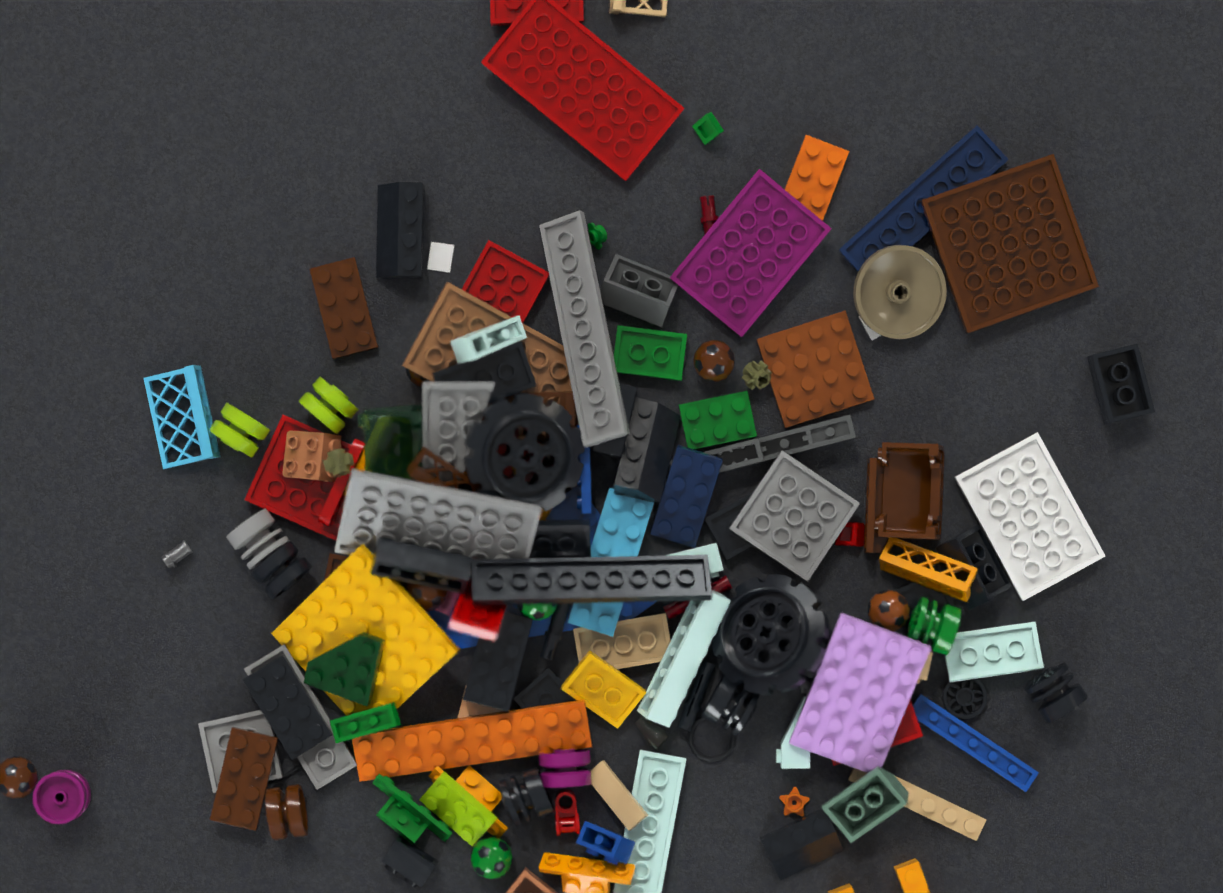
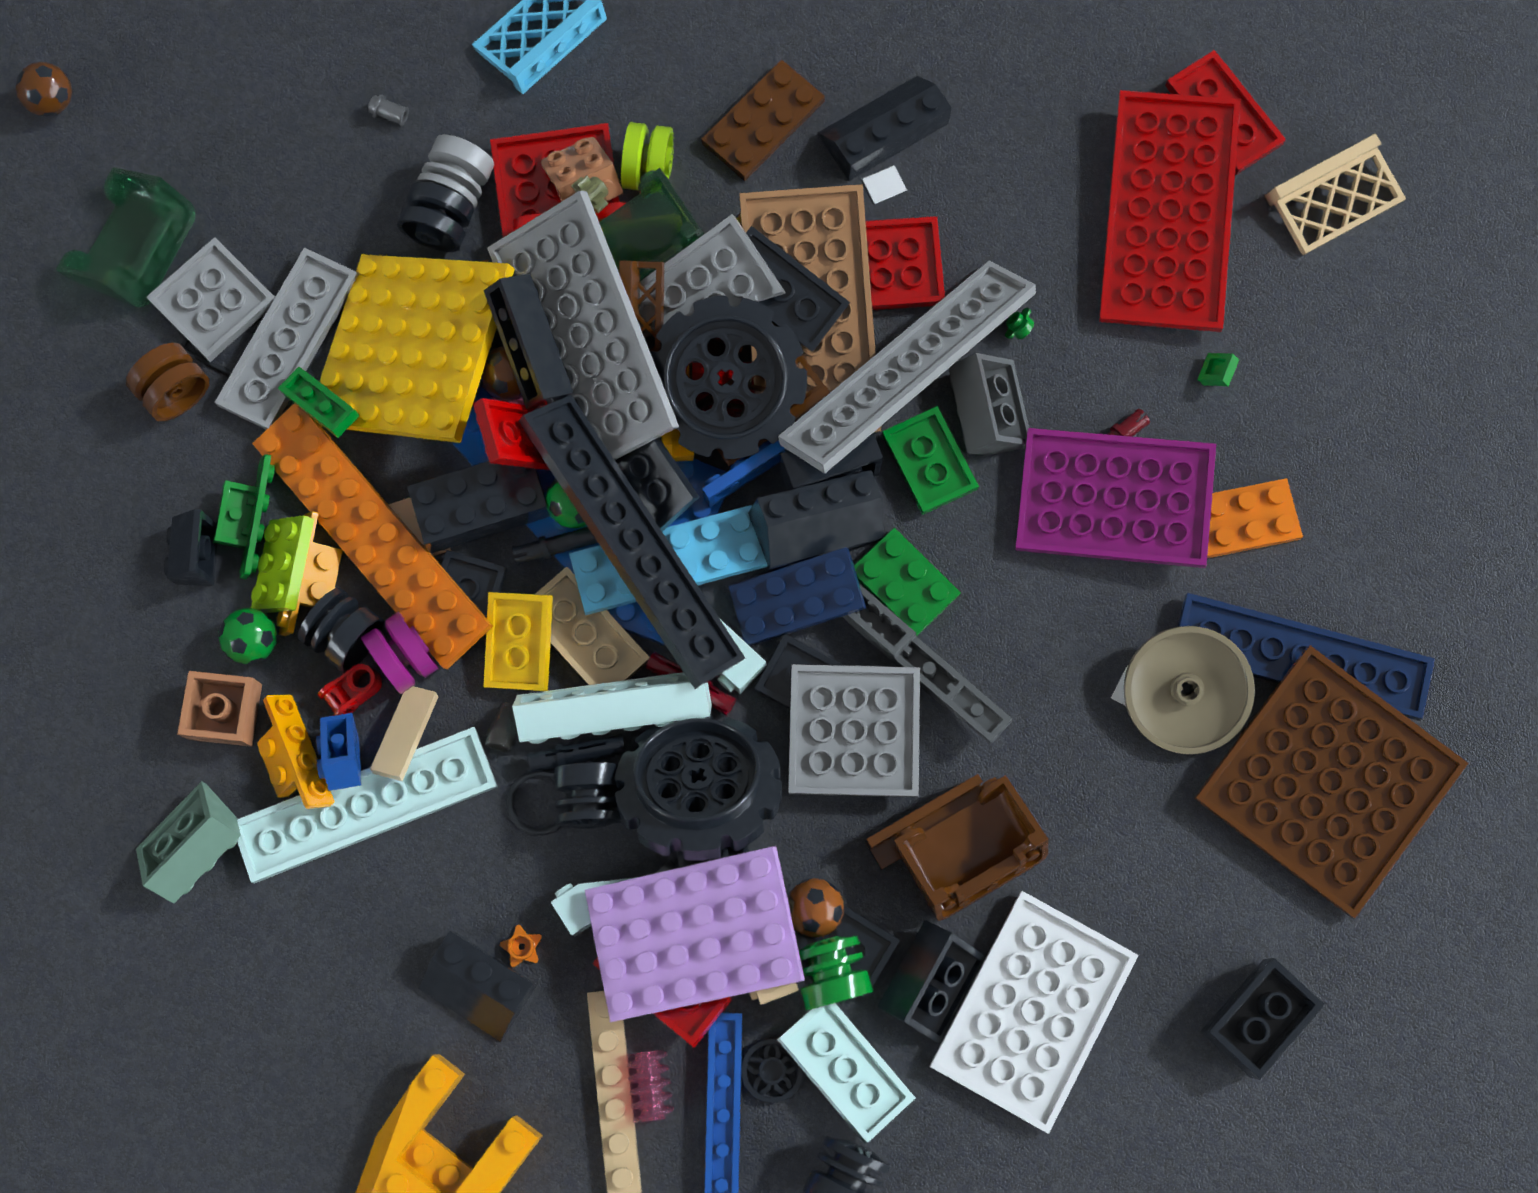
camera: 55 degrees right, 10 degrees down
(52, 806) = (49, 145): magenta wheel -> none
(165, 779) = (136, 239): none -> clear green windscreen
(239, 430) = (559, 85): lime wheel -> none
(244, 778) = (181, 315): reddish brown plate -> none
(287, 707) = (288, 315): black plate -> none
(348, 668) = (368, 347): dark green plate -> none
(488, 339) = (829, 264): light aqua slope -> none
(714, 360) = (969, 532): reddish brown piece -> none
(756, 375) = (985, 590): olive gear -> none
(815, 369) = (1035, 654): dark orange plate -> none
(851, 535) = (874, 813): red slope -> none
(866, 803) = (570, 1027): sand green slope -> none
(927, 576) = (884, 929): light orange fence -> none
(928, 775) = (650, 1086): none -> clear pink piece

